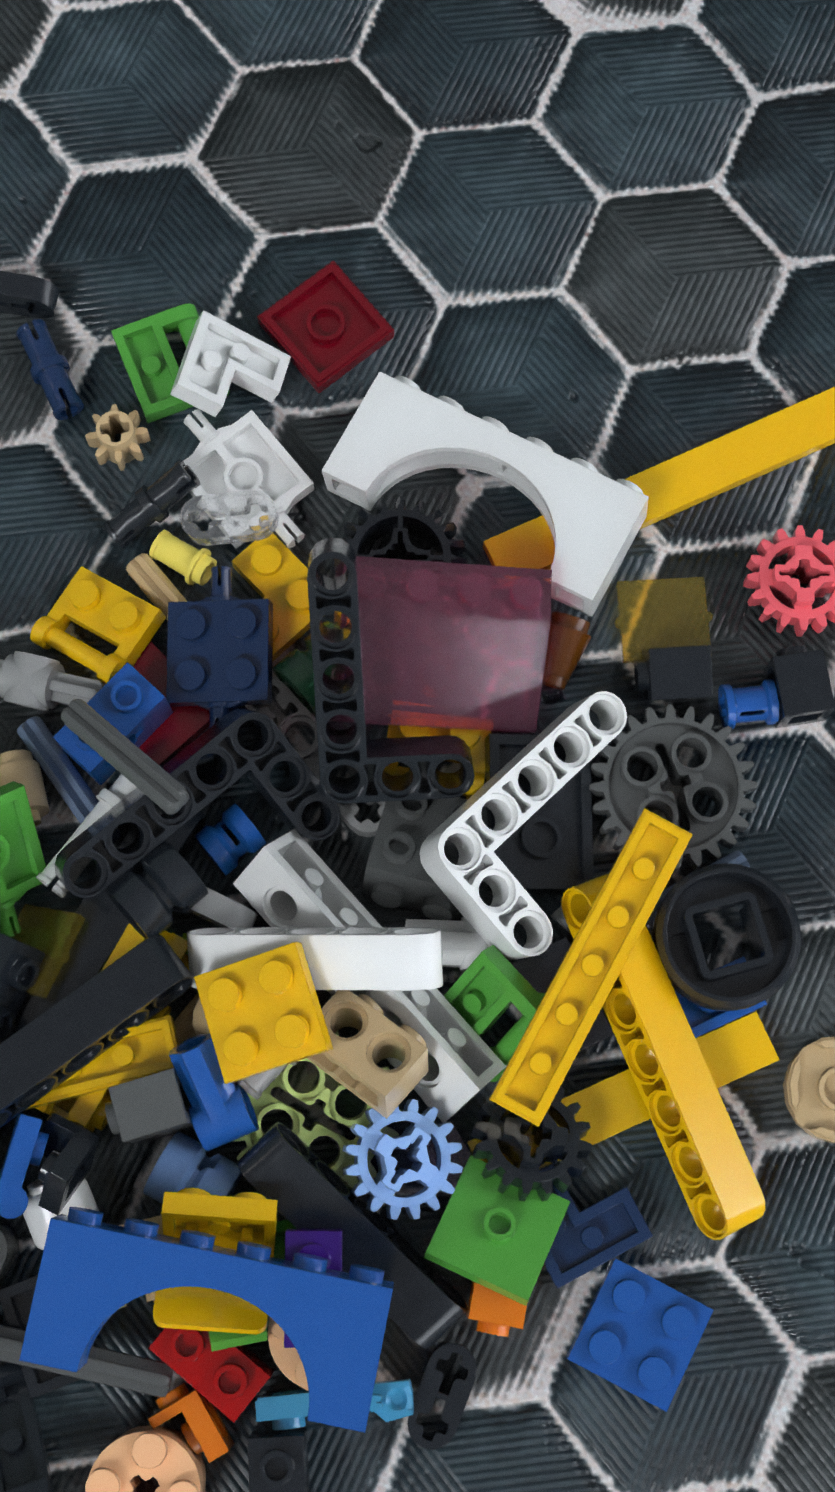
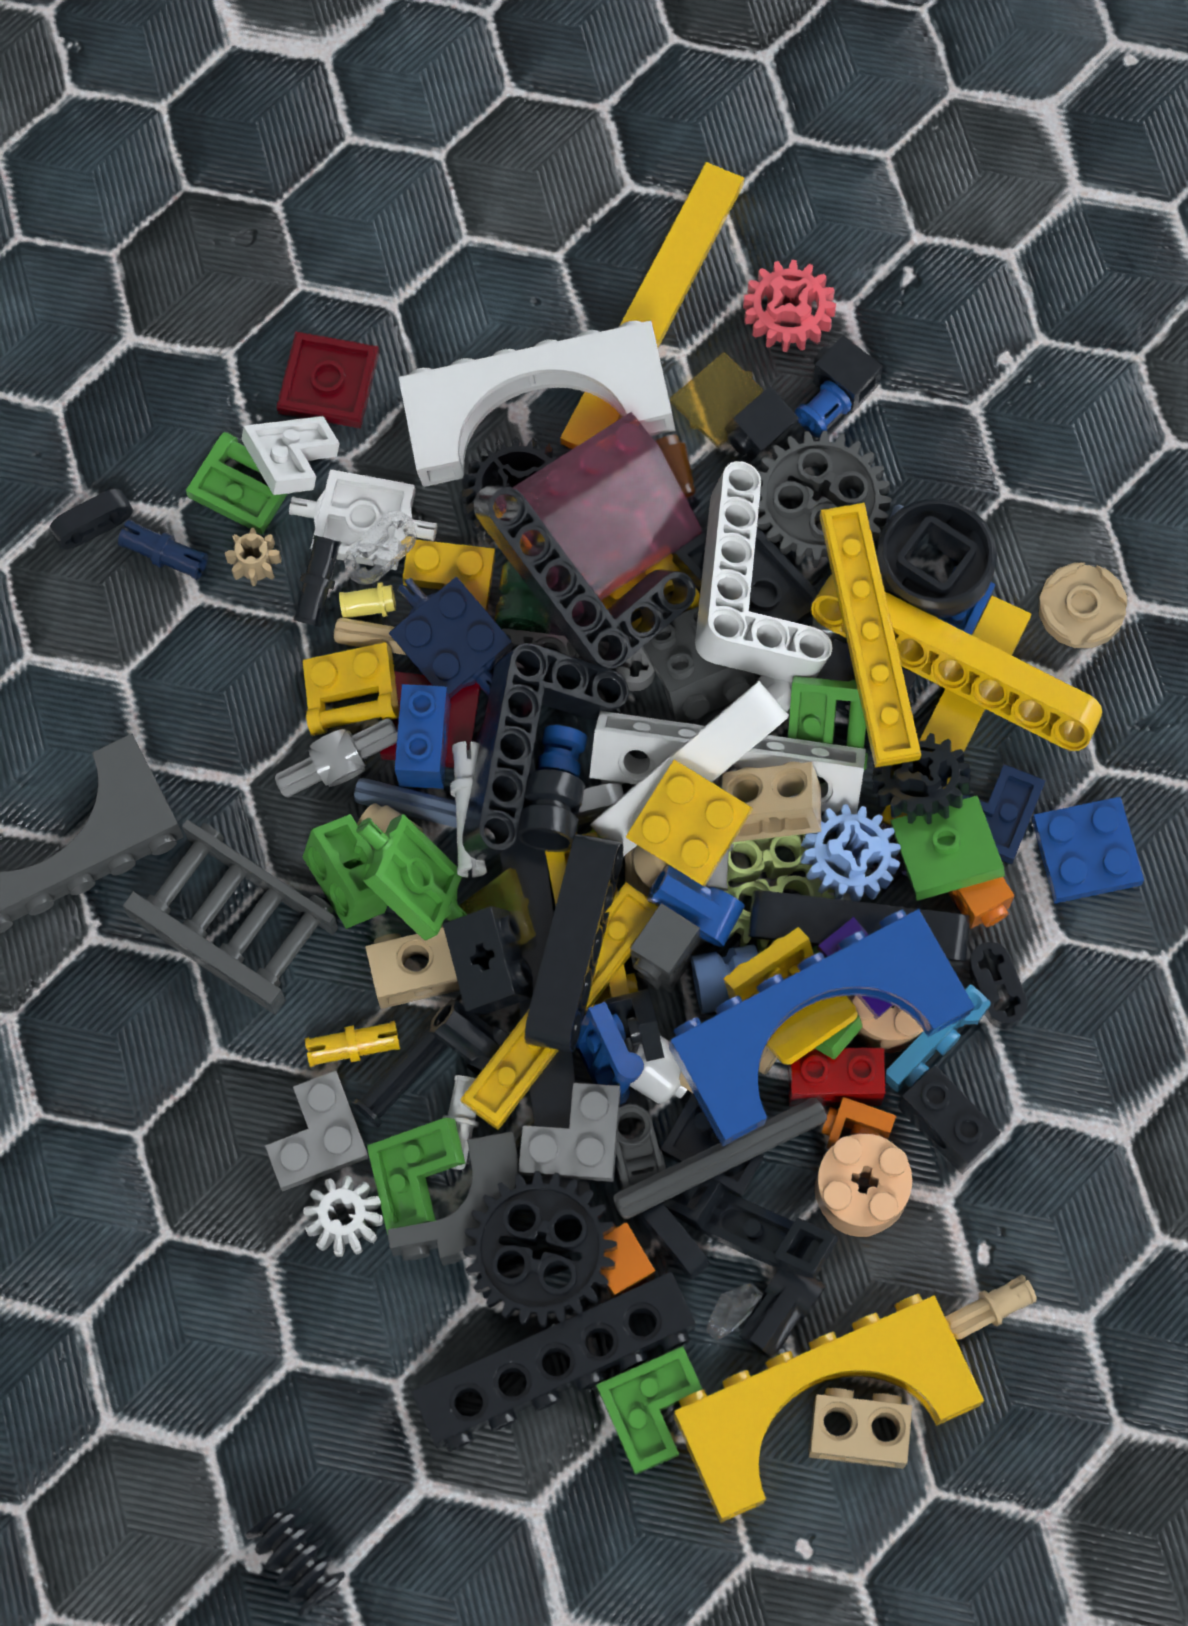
camera: 35 degrees left, 5 degrees down
(125, 756) = (459, 736): dark grey axle -> none

